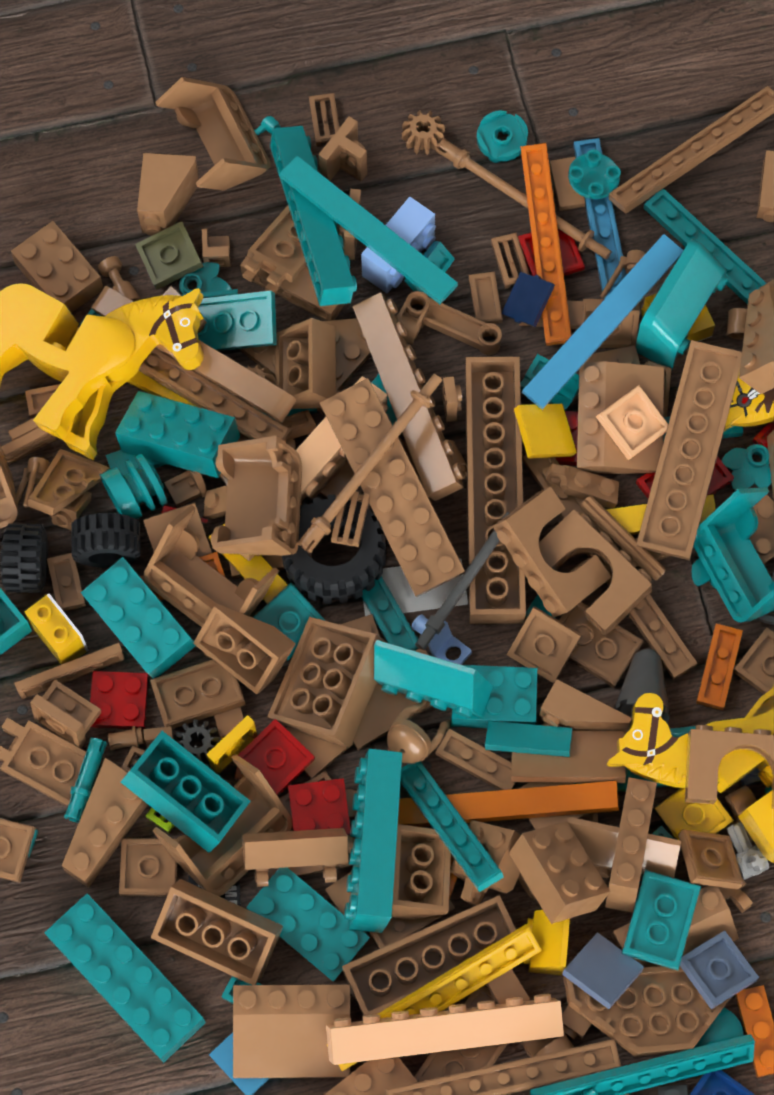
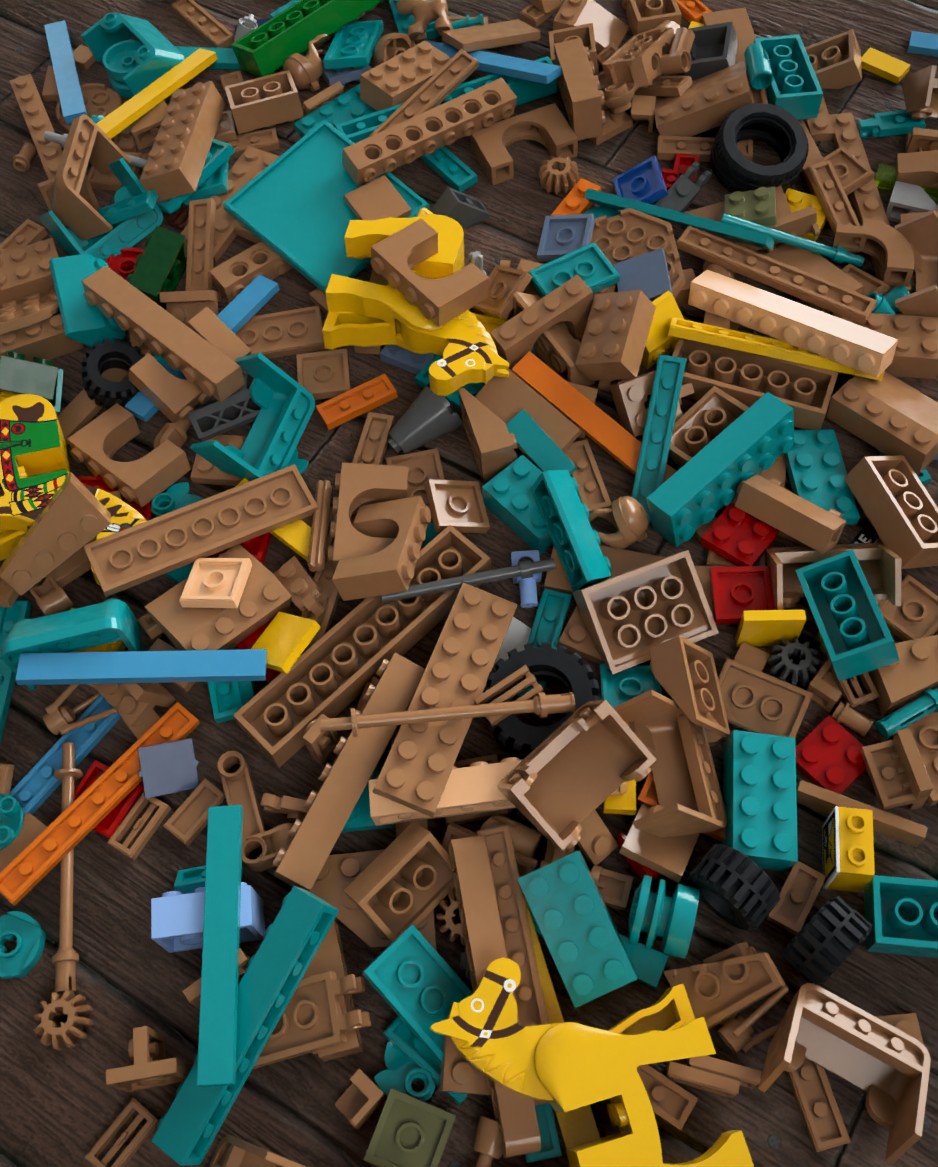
camera: 130 degrees left, 10 degrees down
(427, 350) = (289, 806): none -> medium nougat plate

